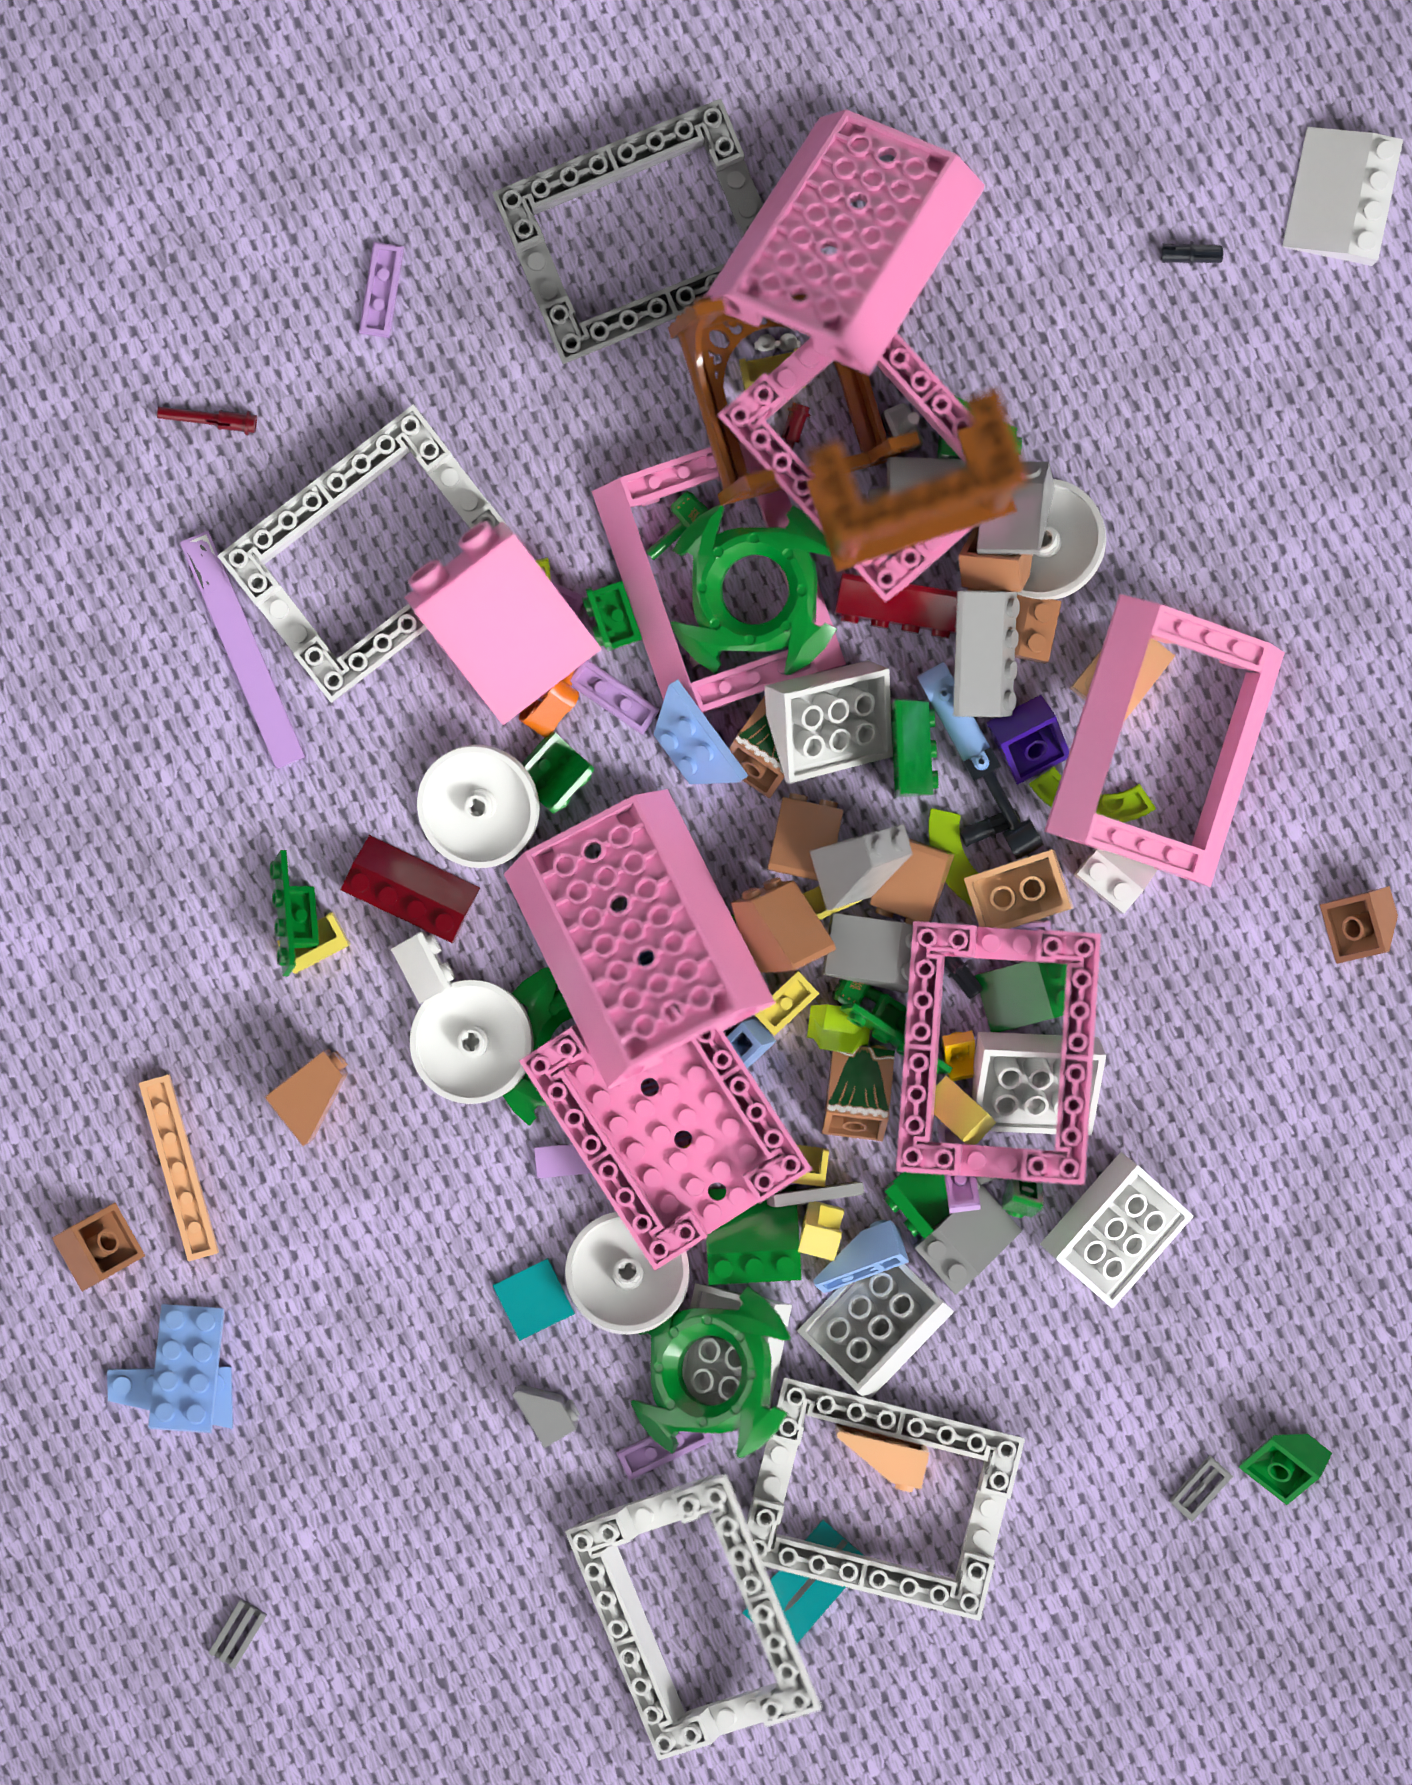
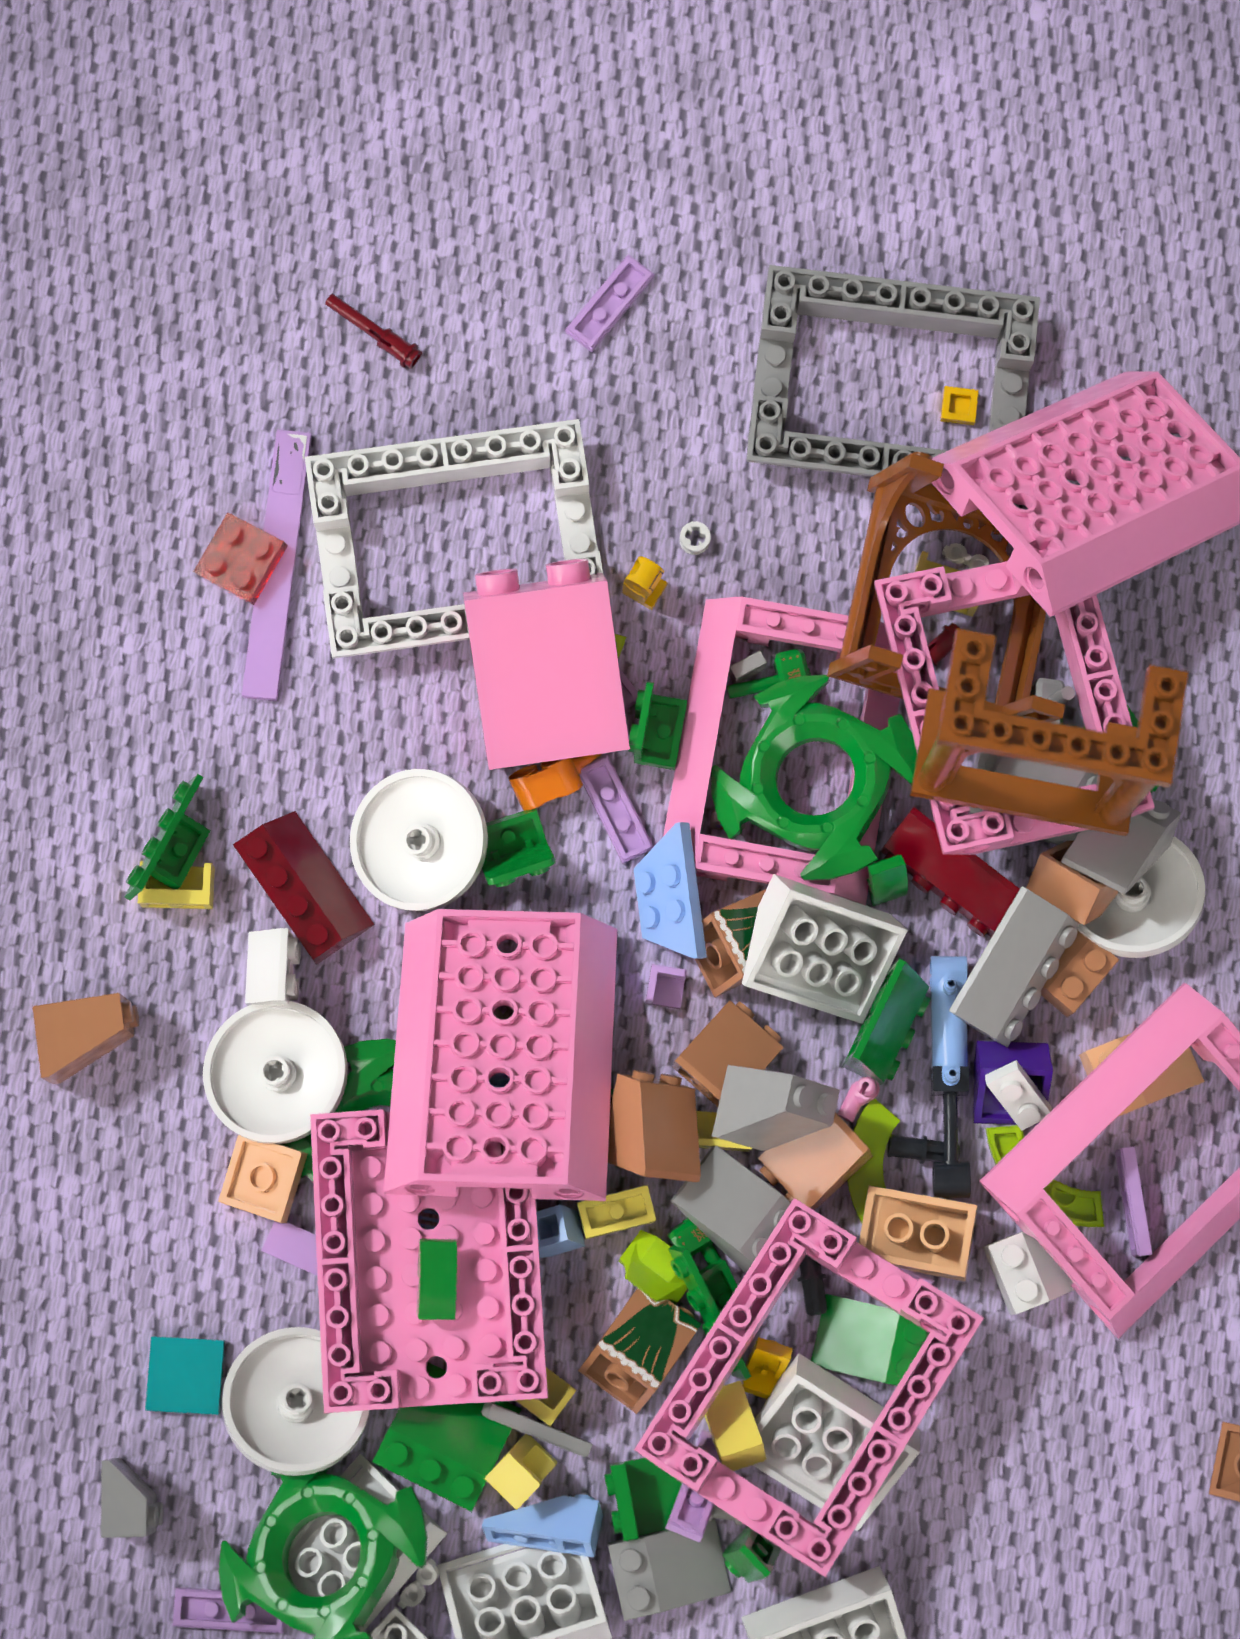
camera: 25 degrees right, 10 degrees down
(212, 661) = (240, 558): none -> clear red plate
(508, 1125) = (263, 1178): none -> light nougat tile
(537, 506) = (645, 582): none -> yellow leg
(559, 437) = (703, 533): none -> white bush
(654, 528) = (747, 667): none -> light grey tile
(682, 1128) = (437, 1279): none -> green slope
(703, 219) = (959, 405): none -> yellow tile
(728, 812) = (665, 986): none -> lavender panel
(792, 1358) = (415, 1591): none -> white piece
(852, 637) = (887, 880): none -> green slope
(919, 811) = (858, 1095): none -> bright pink arm
(1039, 747) = (1018, 1095): none -> white plate
(1168, 778) = (1133, 1201): none -> lavender tile

